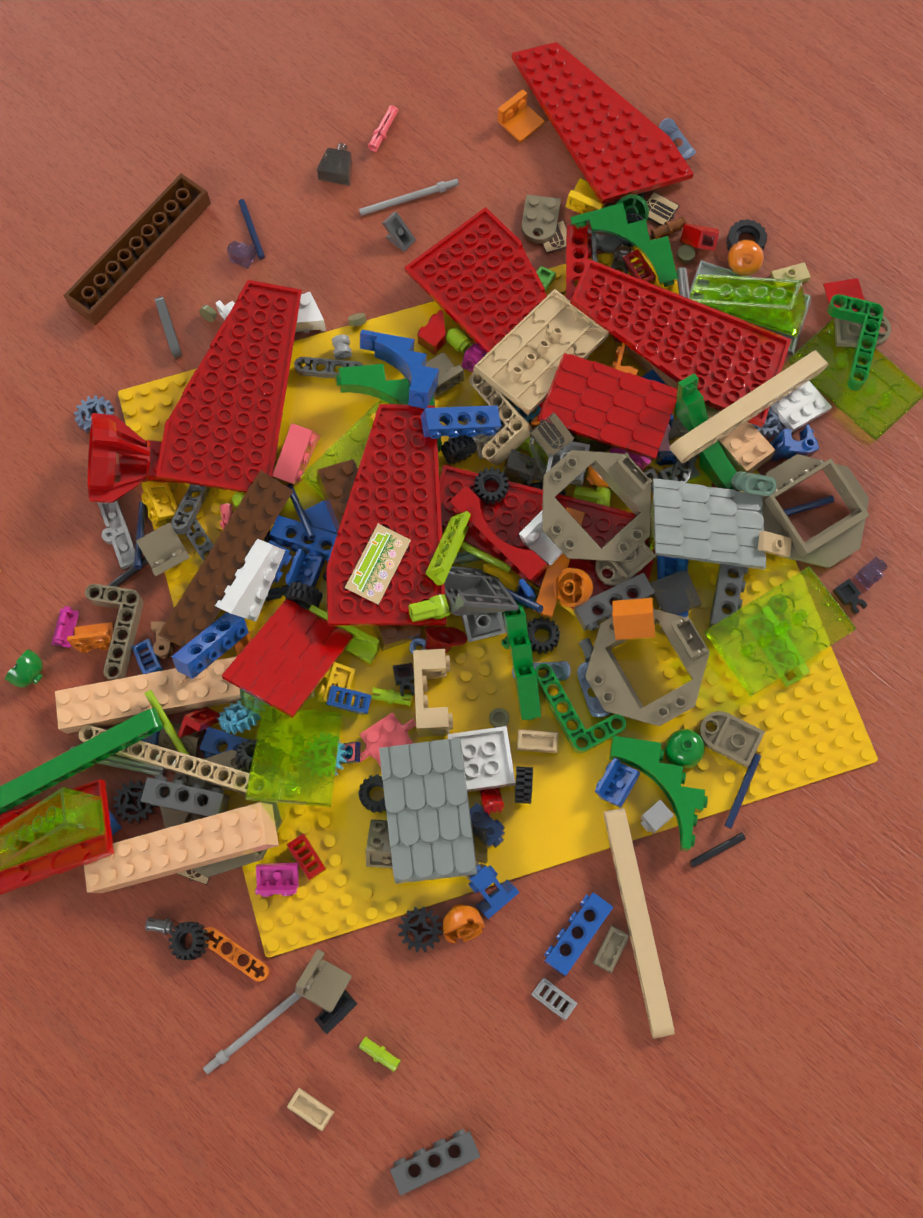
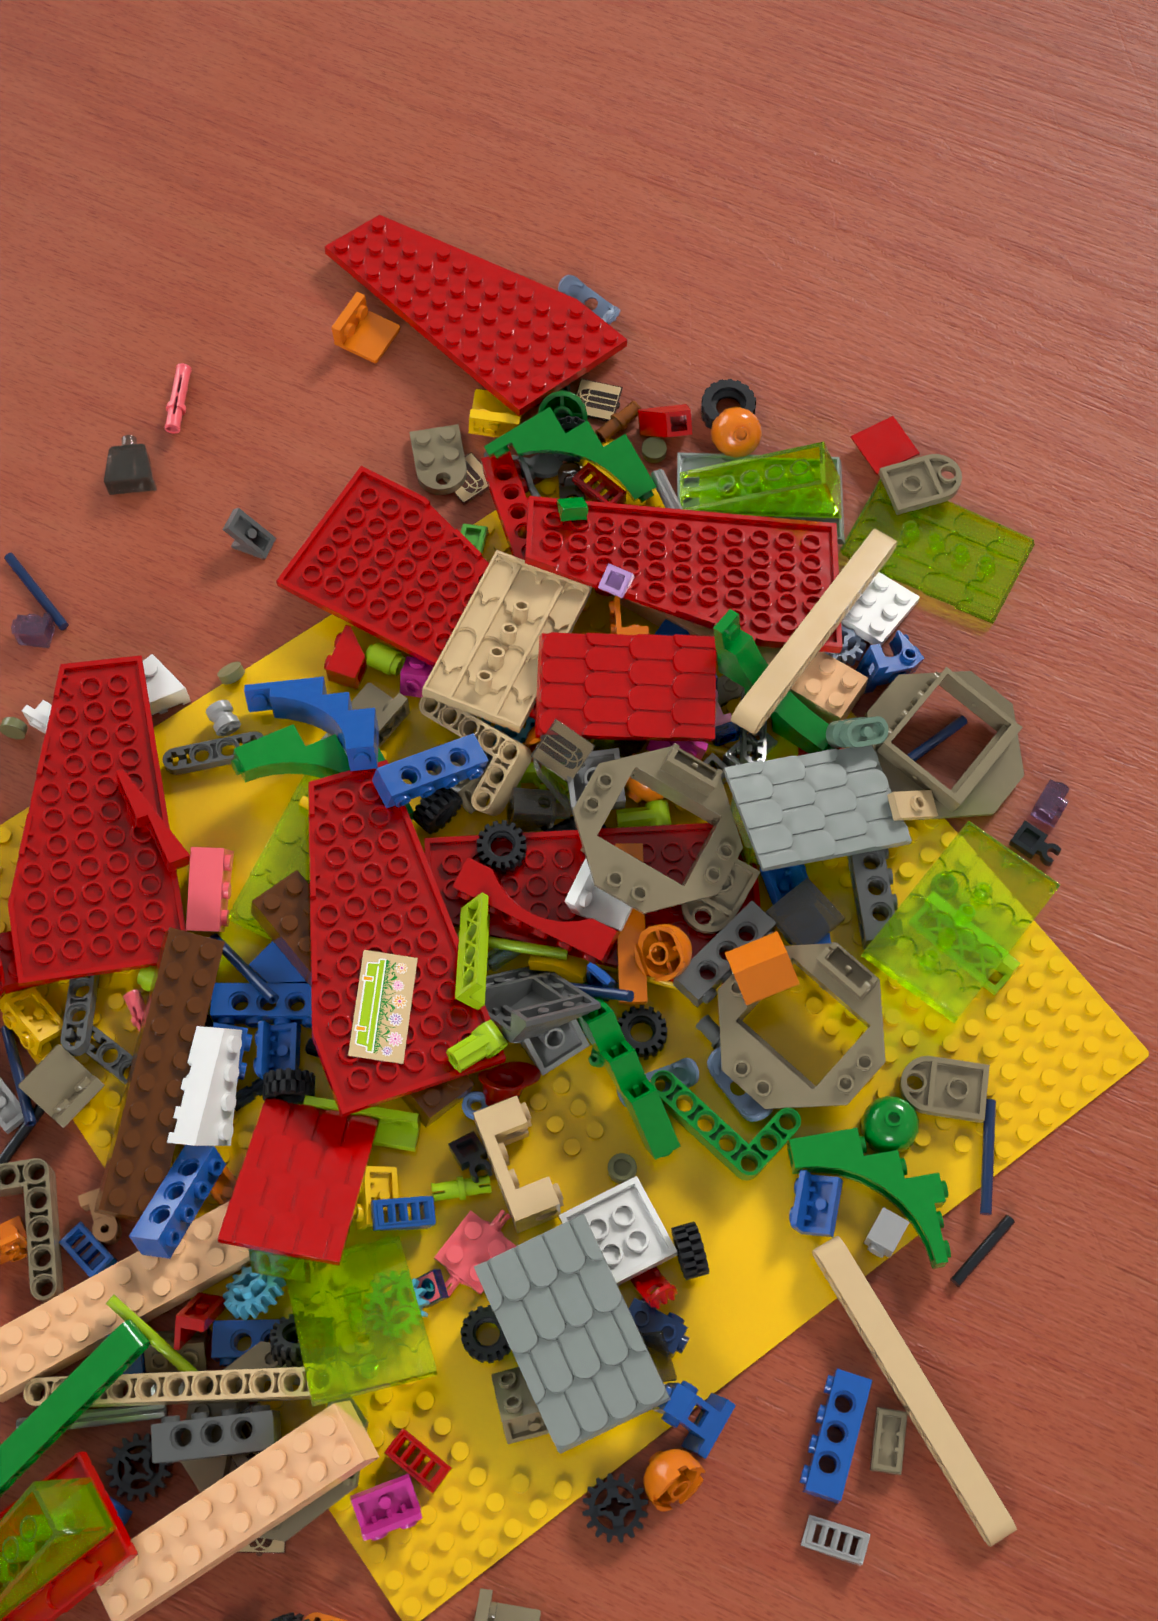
camera: 20 degrees left, 5 degrees down
(279, 422) = (144, 814): none -> red slope
(440, 187) = (286, 456): light grey bar -> none
(537, 741) = (686, 1183): tan plate -> none
(614, 276) = (572, 509): none -> green slope
(626, 332) = (616, 581): none -> lavender slope
(793, 272) = (807, 433): tan plate -> none
(864, 338) = (931, 492): green beam -> none

